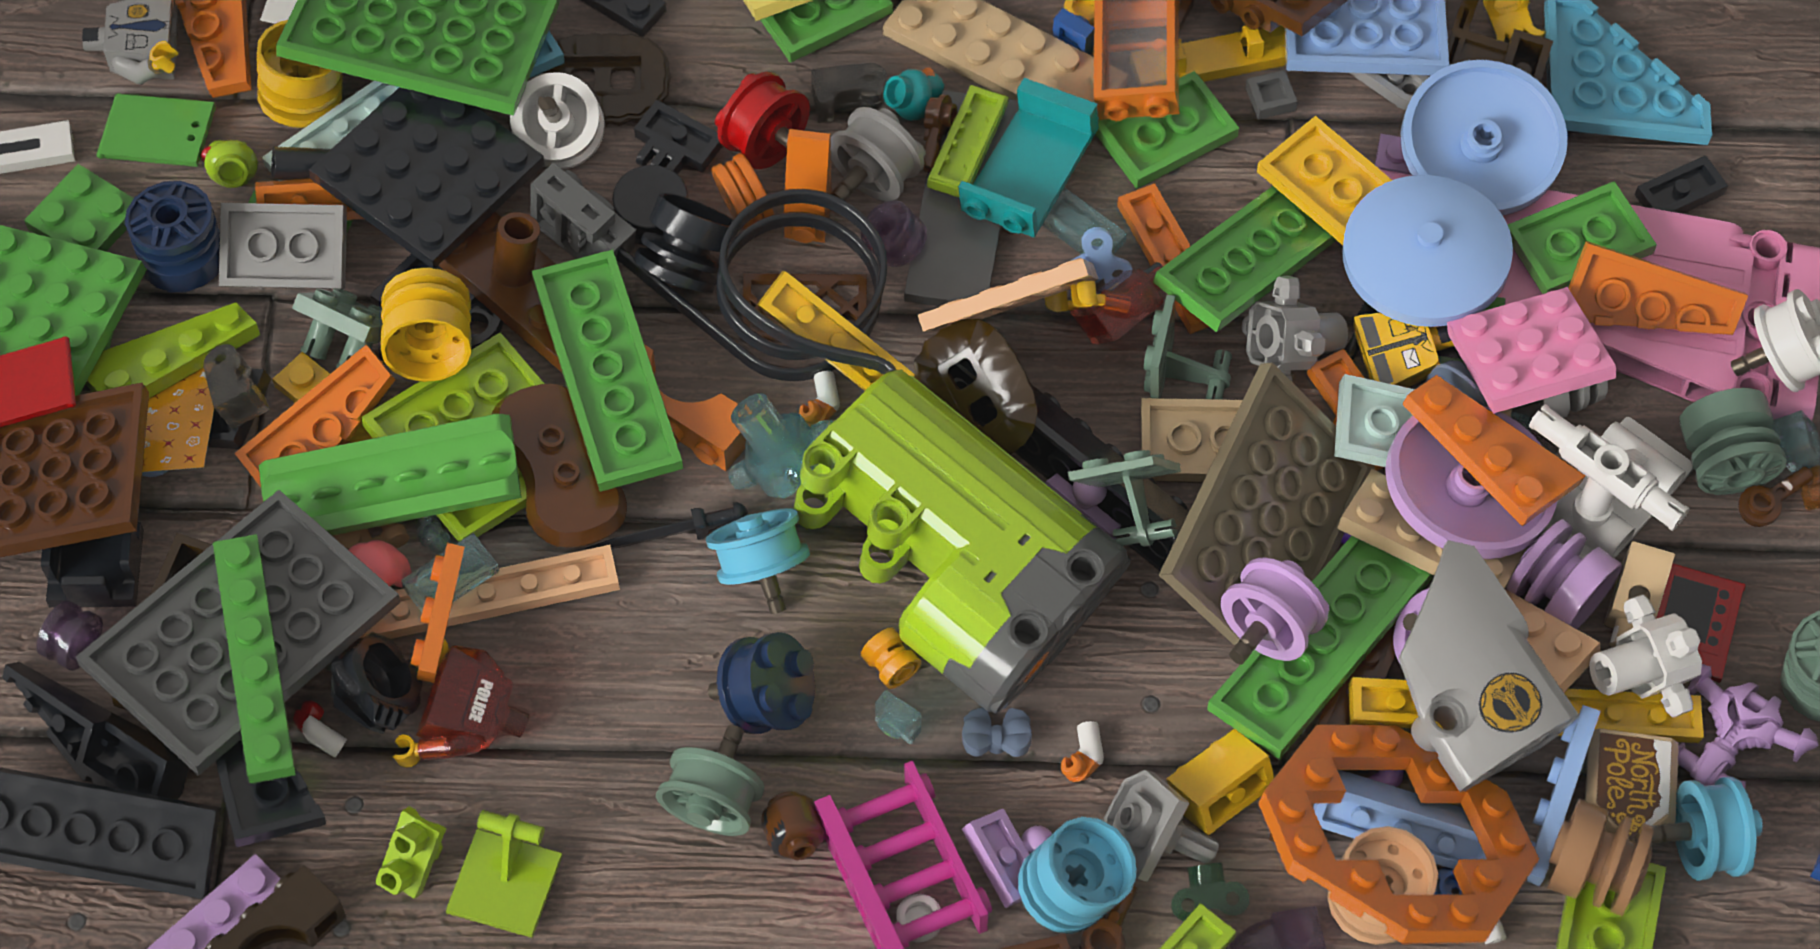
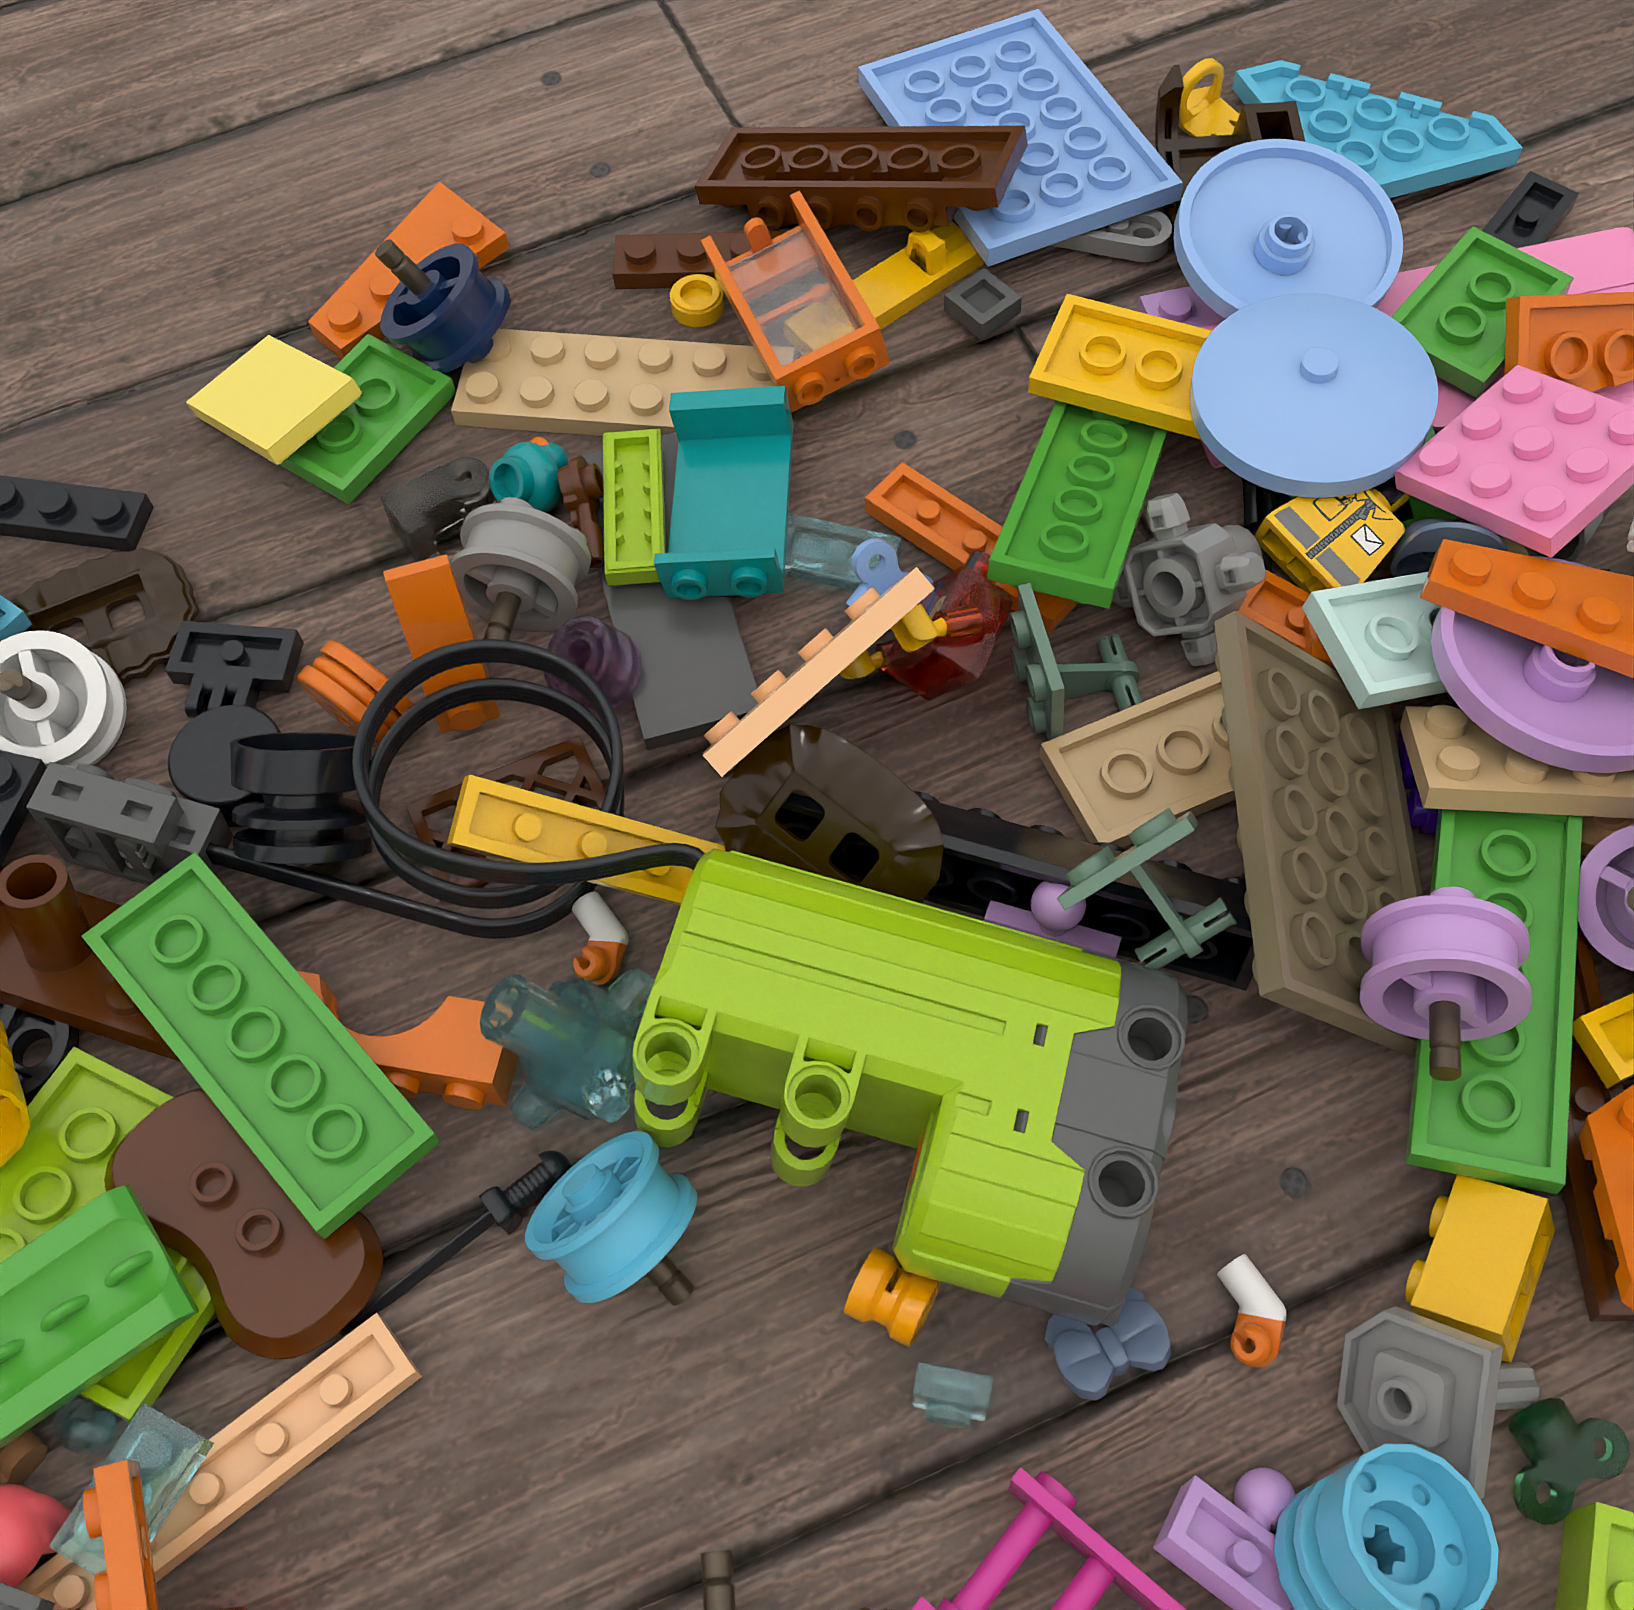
camera: 20 degrees left, 0 degrees up
(760, 118) = (337, 585): red wheel -> none
(765, 683) = (727, 1448): wheel -> none
(1074, 31) = (700, 321): blue plate -> none
(1155, 146) = (881, 414): bright green plate -> none

